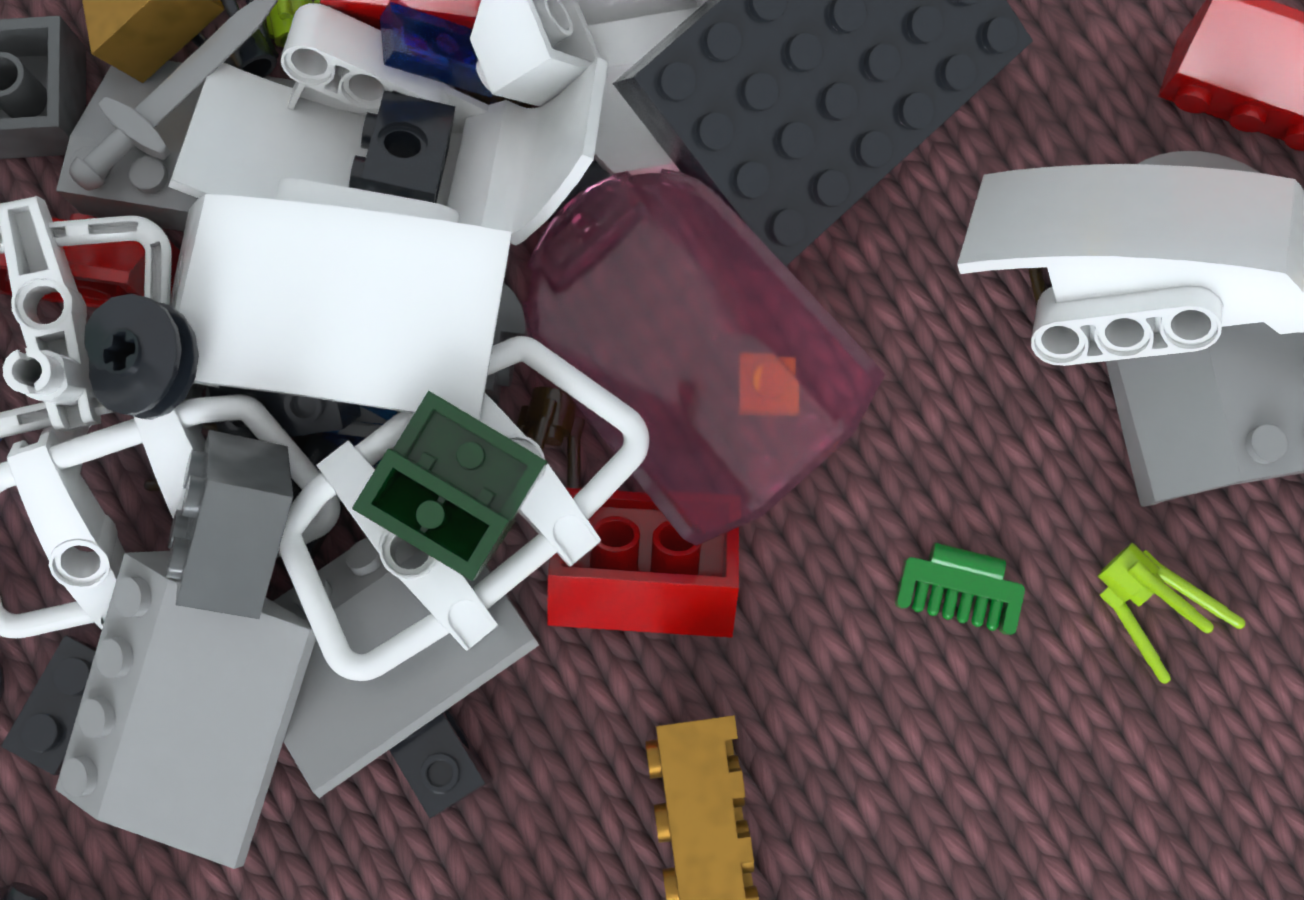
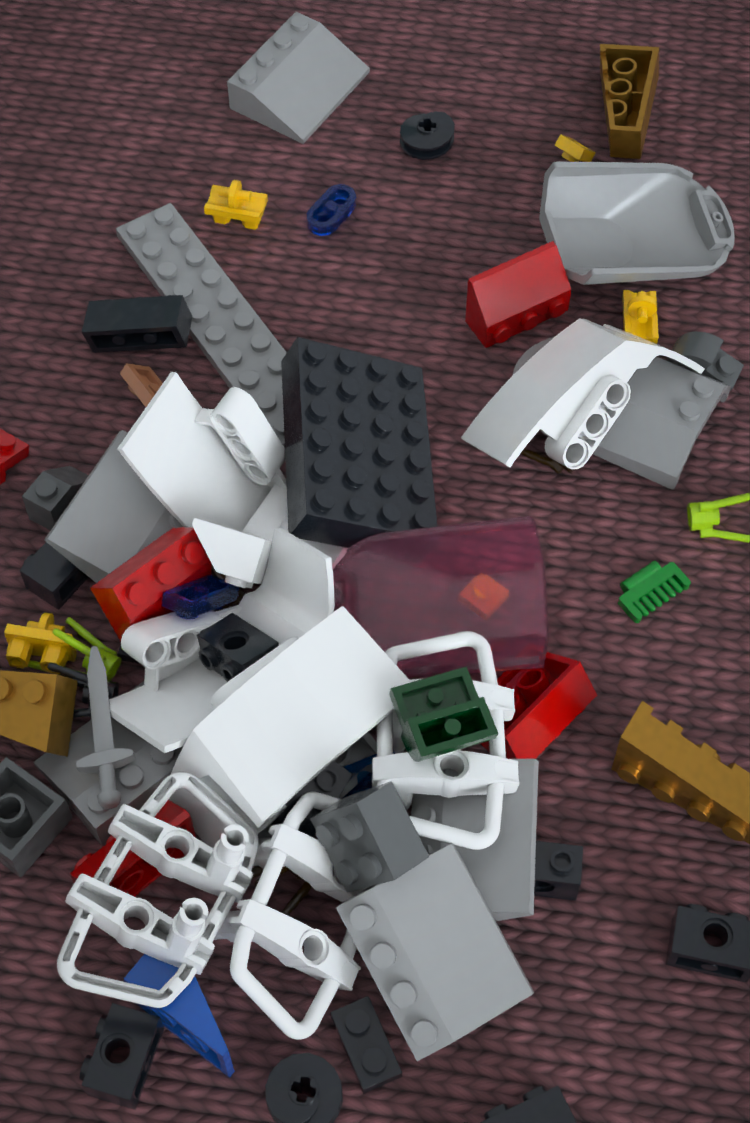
camera: 50 degrees left, 20 degrees down
(140, 356) = (264, 800): black piece -> none

